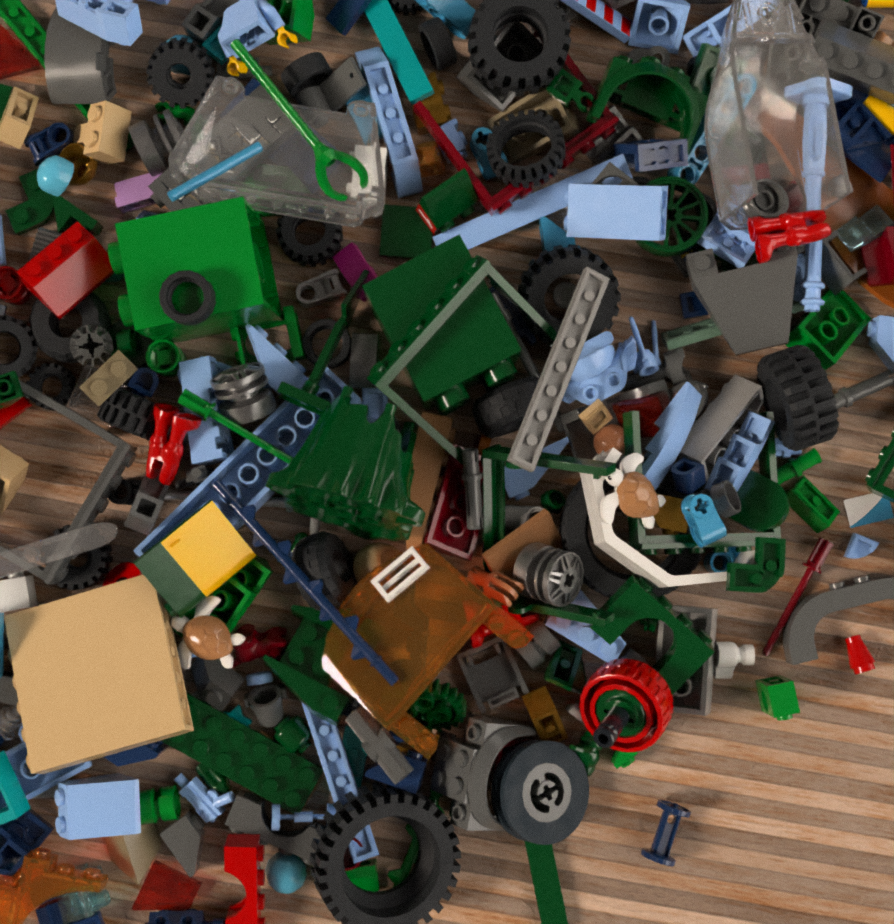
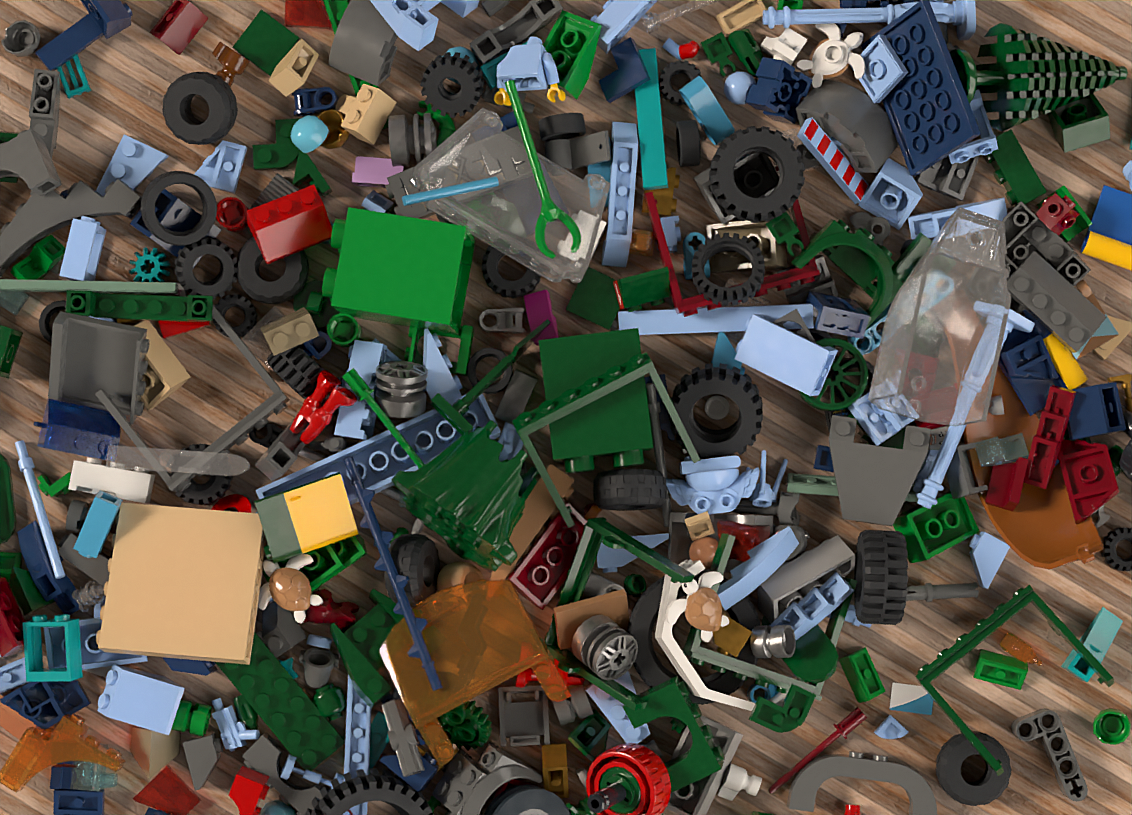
camera: 25 degrees right, 0 degrees up
(98, 335) = (278, 287): dark grey gear -> none
(171, 284) = (368, 289): black tyre -> none
(407, 582) = (497, 592): white tile -> none
(471, 477) = (570, 538): dark grey pin -> none
(496, 585) = (556, 639): nougat arm -> none
(558, 370) = (679, 475): light grey tile -> none
(687, 476) = (757, 609): dark blue plate -> none
(705, 522) = (753, 656): dark azure piece -> none
(770, 201) = (919, 395): dark grey piece -> none
(798, 230) = (932, 432): red piece -> none
(798, 465) = (861, 637): green pin -> none

